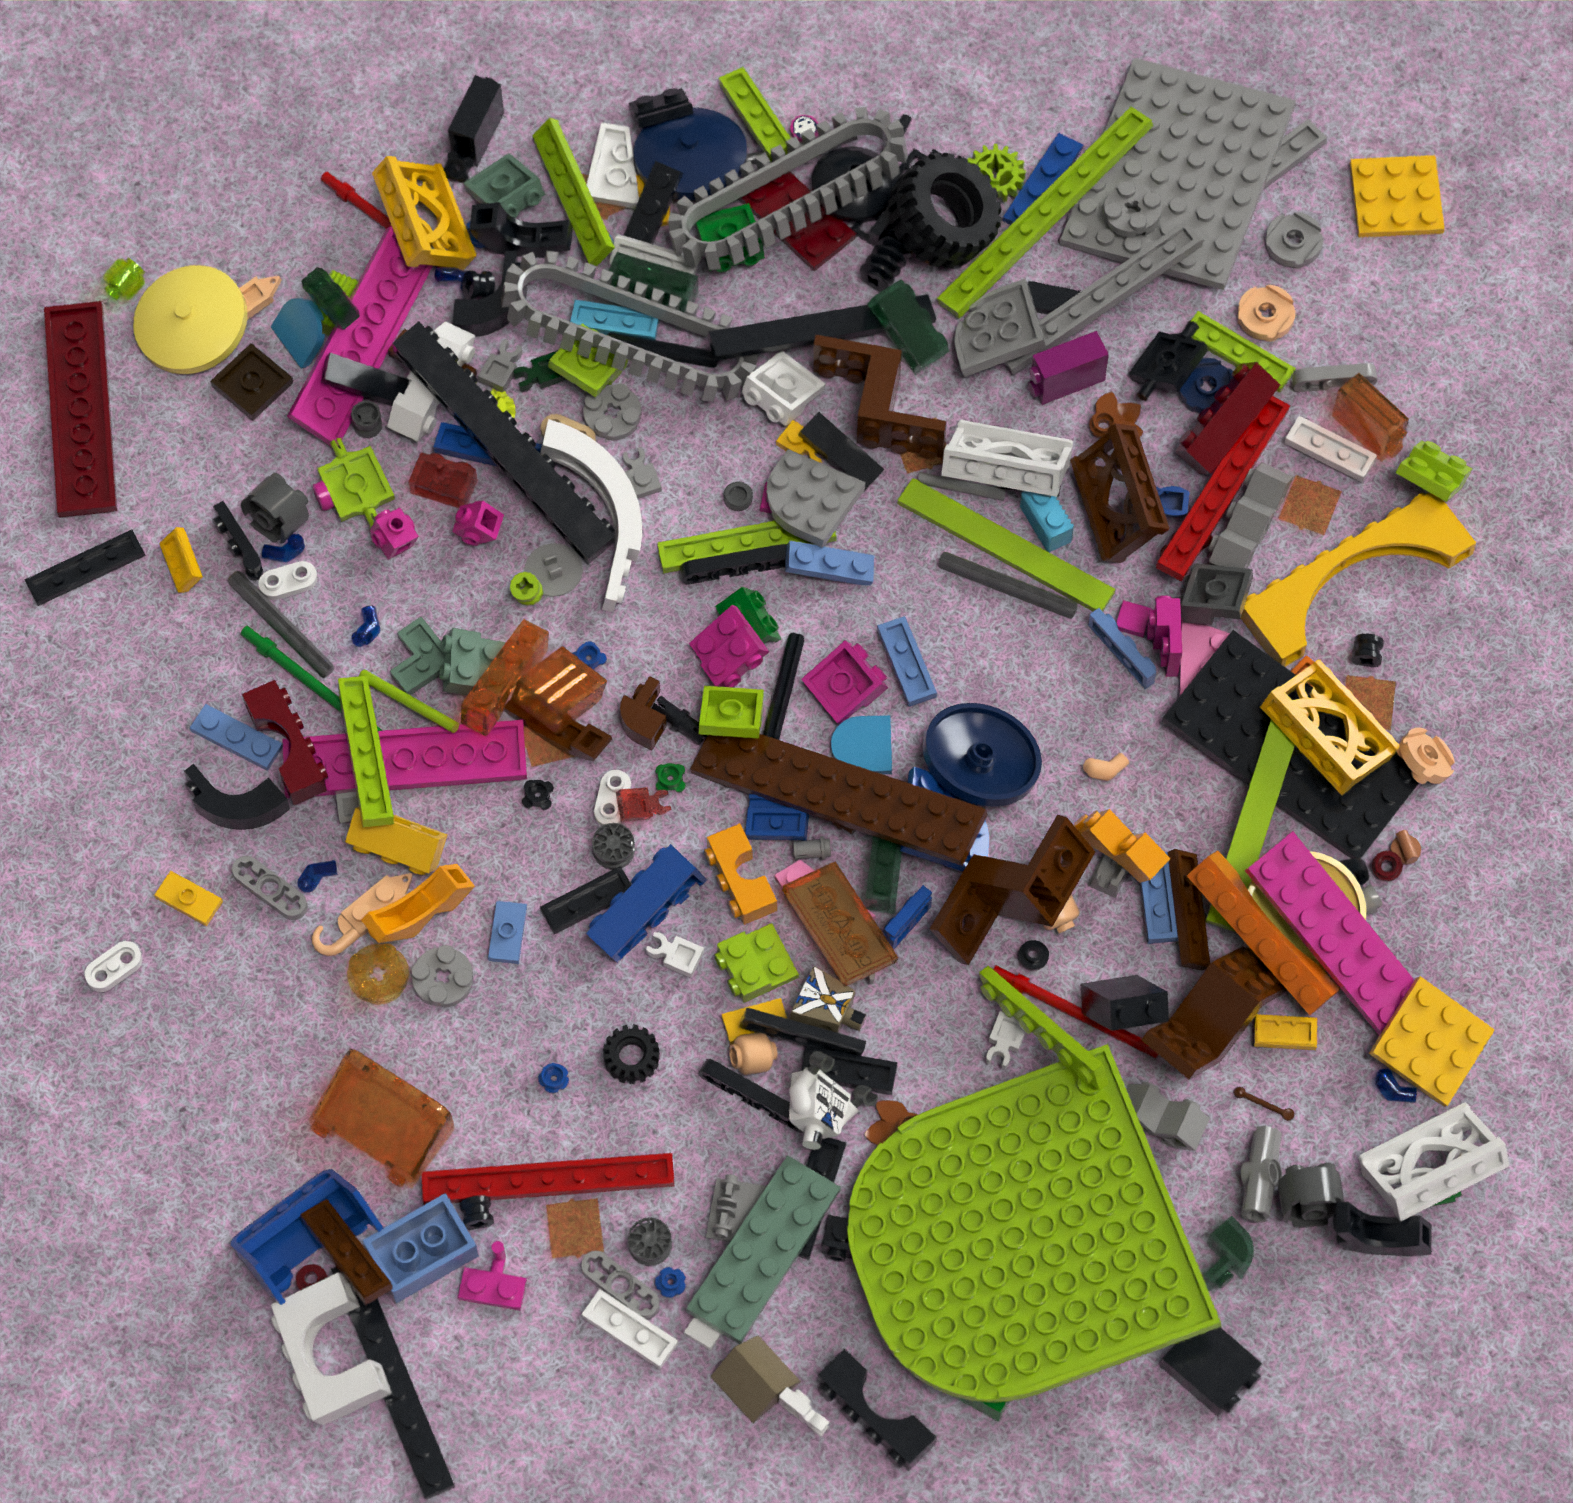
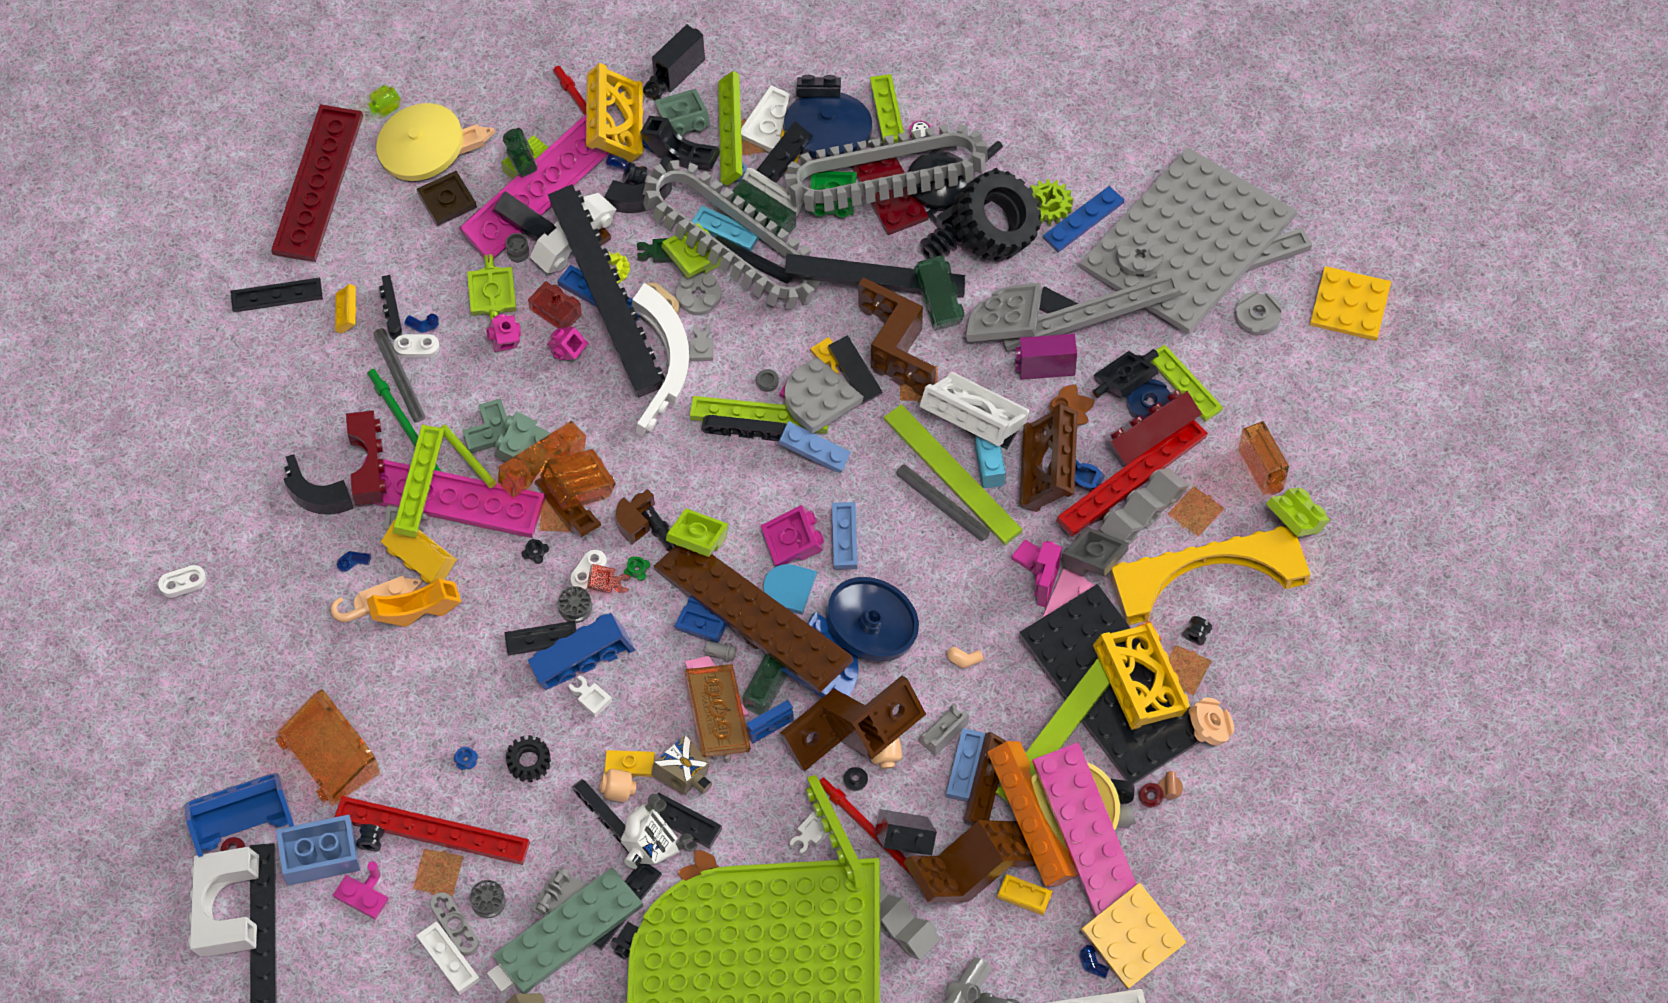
camera: 20 degrees right, 5 degrees down
(188, 898) = (255, 549): yellow plate -> none
(236, 737) = (335, 445): medium blue plate -> none
(276, 508) = (425, 291): dark grey brick -> none
(281, 907) = (316, 550): light grey beam -> none
(300, 329) = (493, 170): dark azure tile -> none
(322, 496) = (464, 292): dark pink tile -> none
(346, 1251) = (261, 834): reddish brown tile -> none
(369, 629) = (460, 397): clear blue arm -> none
(370, 989) = (360, 635): clear yellow plate -> none
(437, 993) = (416, 648): light grey plate -> none
(499, 369) = (626, 240): light grey plate -> none
(507, 932) = (474, 643): medium blue plate -> none
(530, 593) = (587, 406): lime wheel -> none
(556, 568) = (611, 394): light grey piece -> none
(590, 649) = (614, 458): blue plate -> none
(666, 1289) = (491, 939): blue plate -> none
(729, 648) = (715, 486): dark pink plate -> none
(749, 898) = (660, 672): light orange arch -> none
(752, 607) = (738, 471): green bracket -> none
(755, 962) = (646, 720): lime plate -> none
(782, 388) = (829, 311): white plate -> none
(784, 686) = (747, 527): black axle -> none
(800, 1033) = (656, 780): black tile -> none
(962, 486) = (940, 423): light grey bar -> none
(1045, 212) = (1074, 239): lime plate -> none
(1122, 647) = (1011, 573): medium blue plate -> none
(1133, 852) = (945, 710): light orange arch -> none
(1266, 327) = (1216, 372): light nougat plate -> none
(1287, 1114) = (1003, 956): reddish brown hinge -> none
(1330, 449) = (1226, 474): white plate -> none
(1331, 376) = (1241, 419): light grey beam -> none

